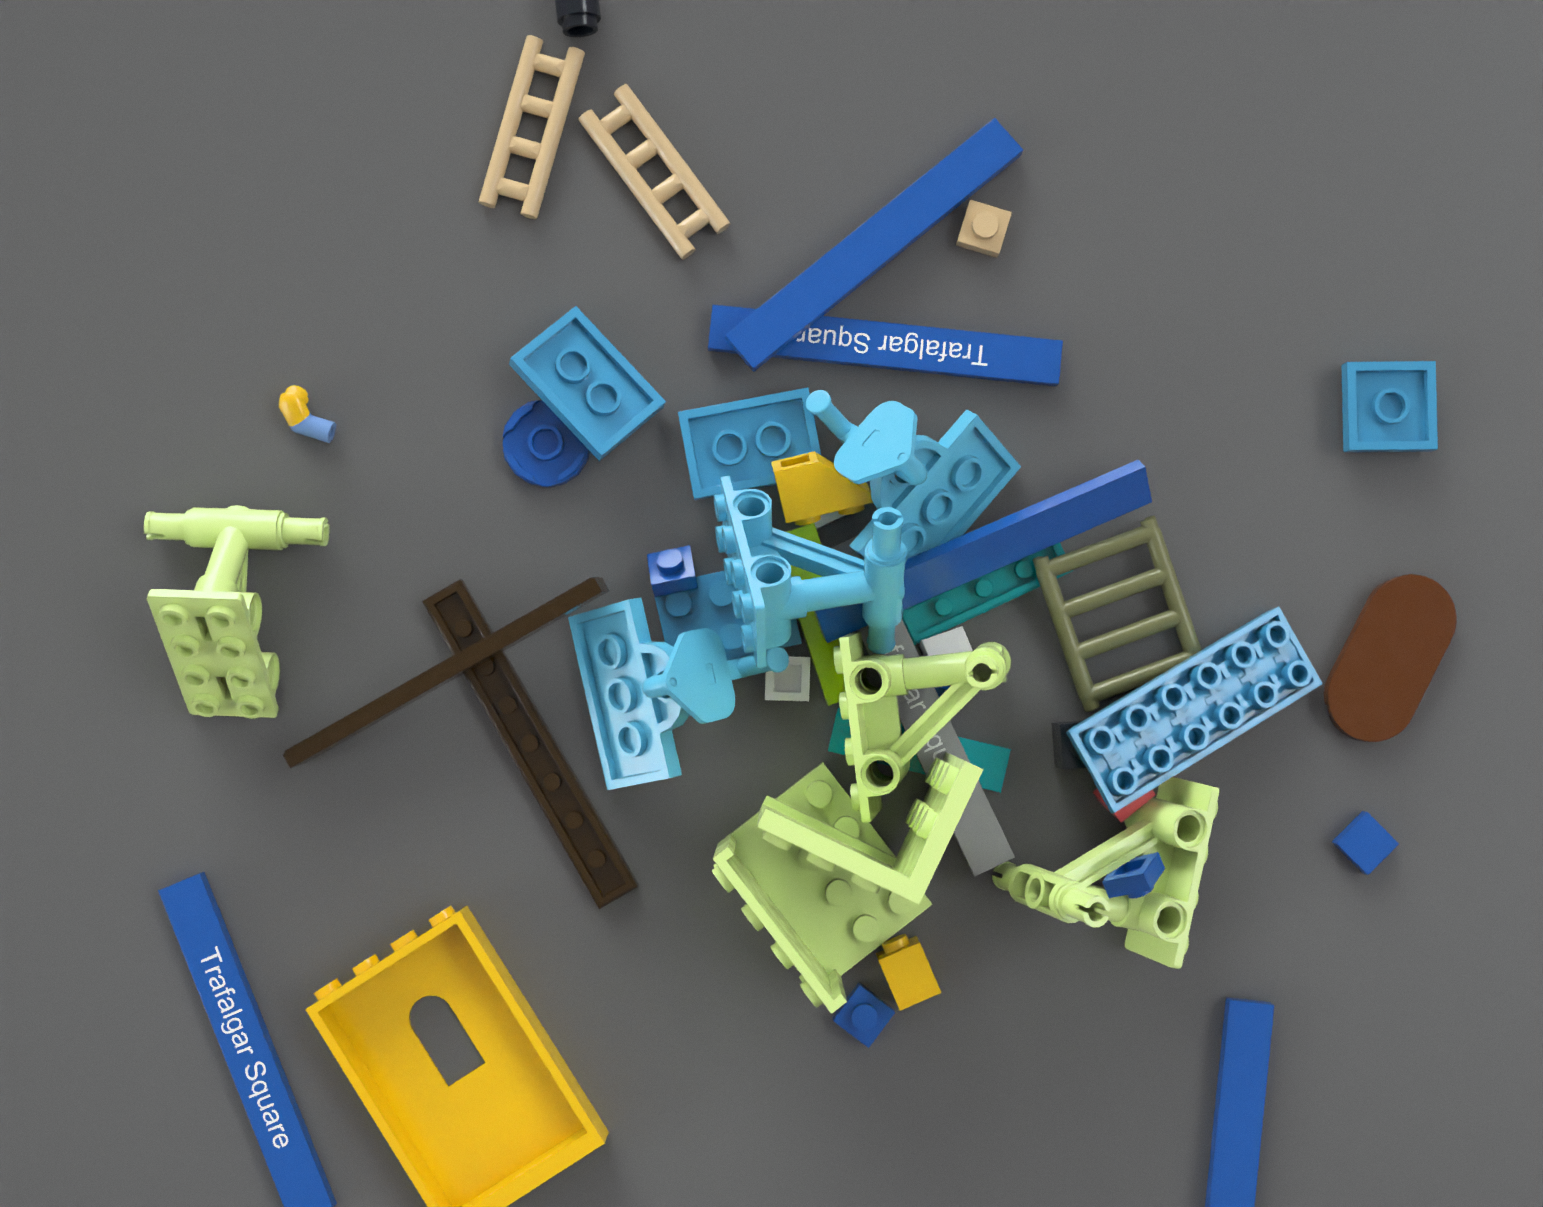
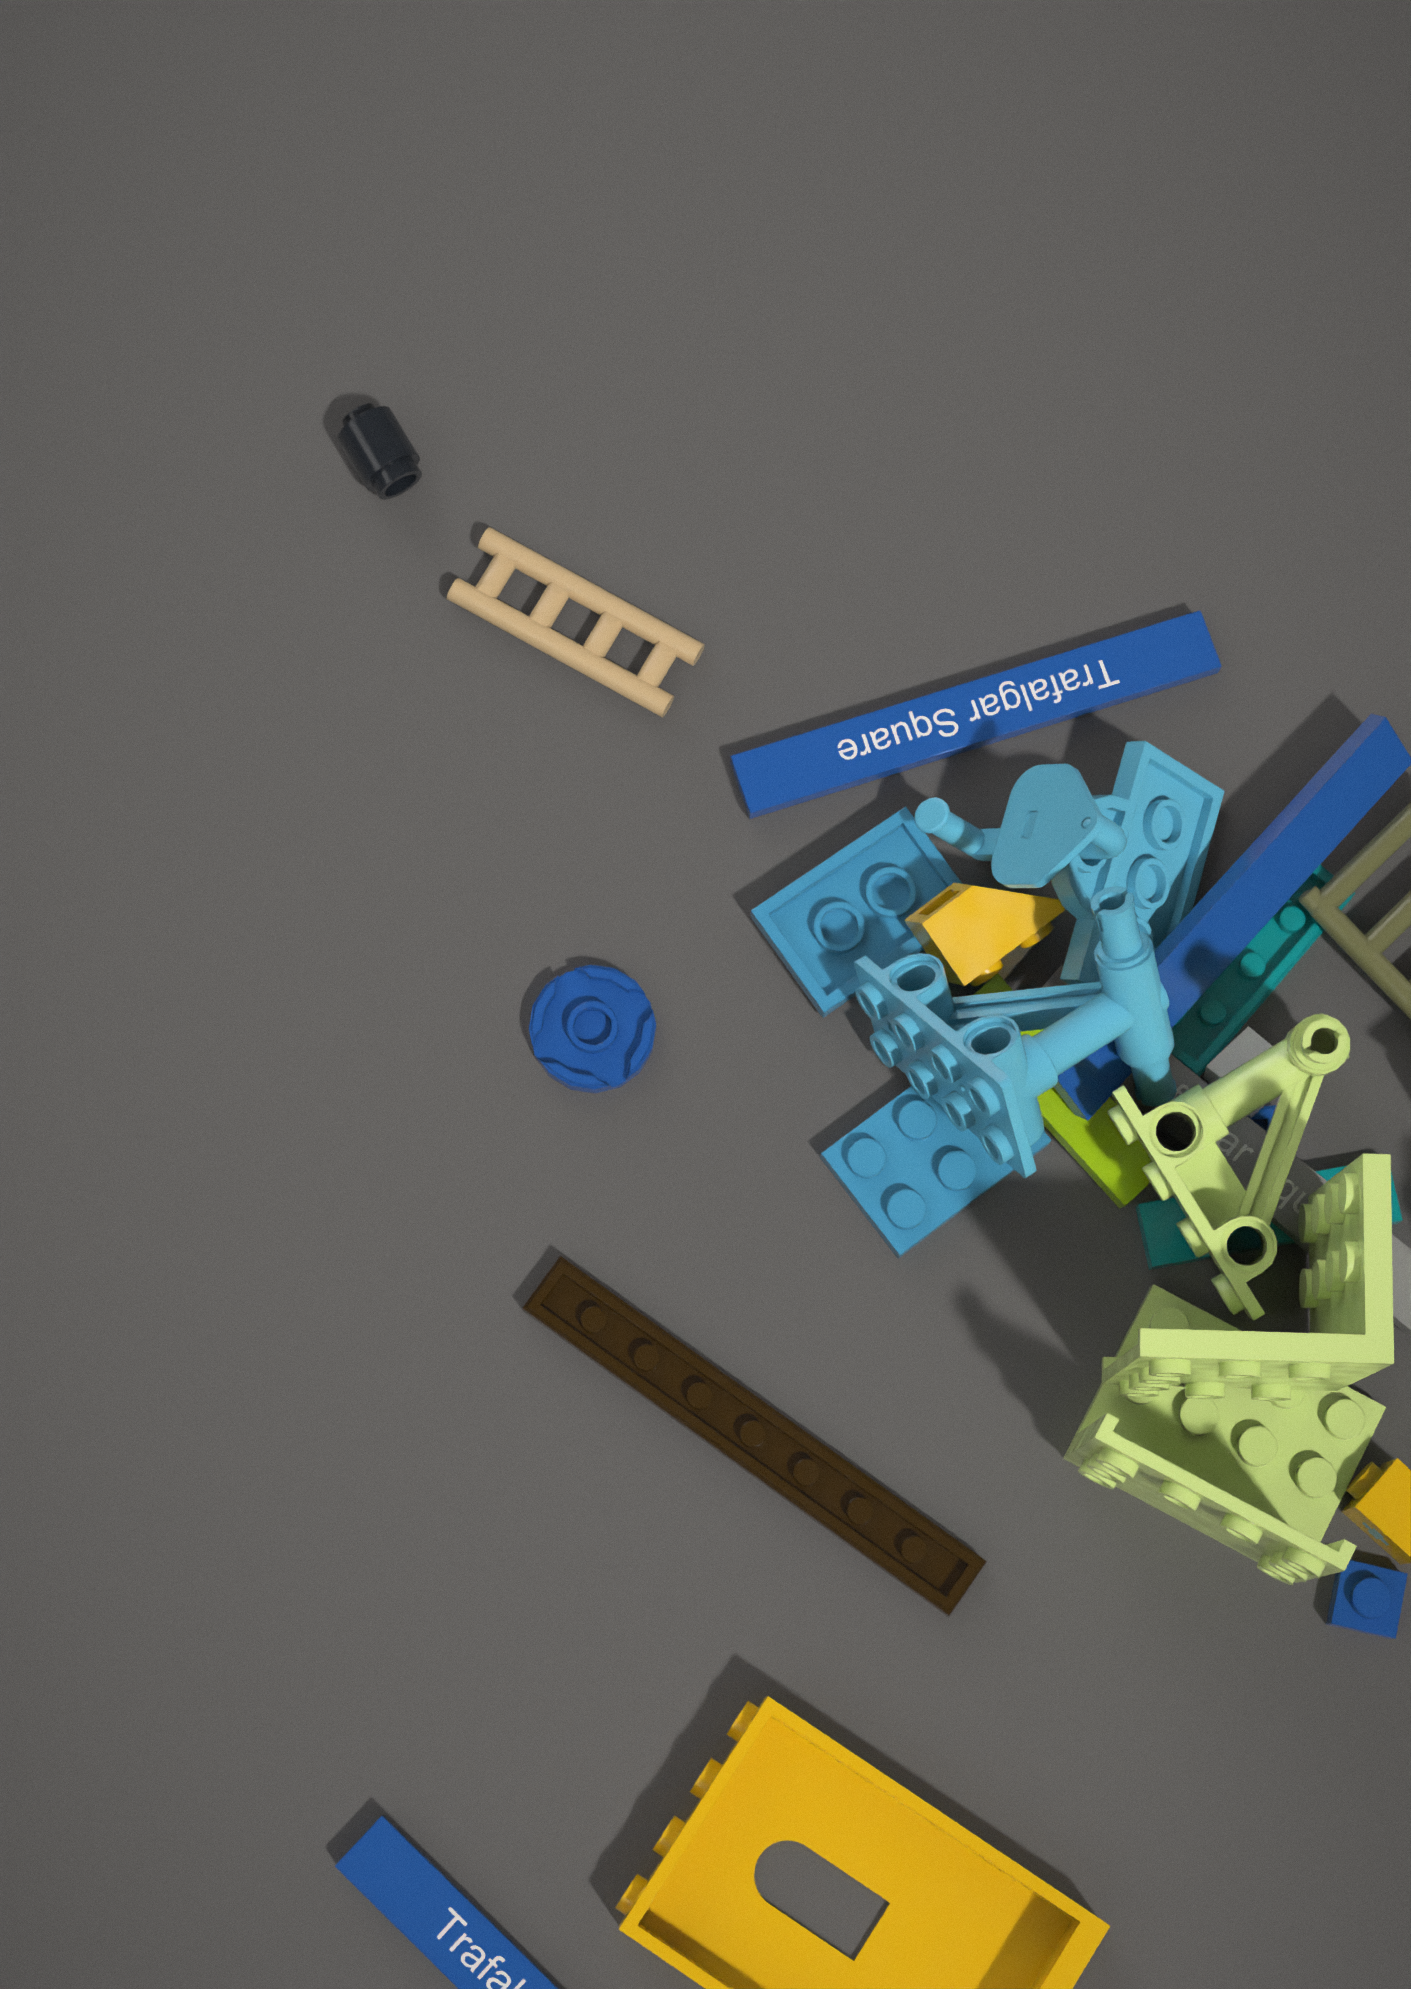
camera: 30 degrees left, 10 degrees down
(216, 626) = (272, 1444): yellowish green plate -> none
(299, 418) = (247, 1137): arm -> none
(445, 671) = (601, 1383): dark brown tile -> none
(521, 102) = (417, 659): tan bar -> none
(587, 383) = (615, 924): dark azure plate -> none
(649, 688) = (860, 1287): medium azure plate -> none
(672, 571) = (838, 1120): blue plate -> none
(790, 684) = (1053, 1196): white tile -> none
(873, 244) = (902, 596): blue tile -> none
(983, 228) = (1031, 515): tan plate -> none

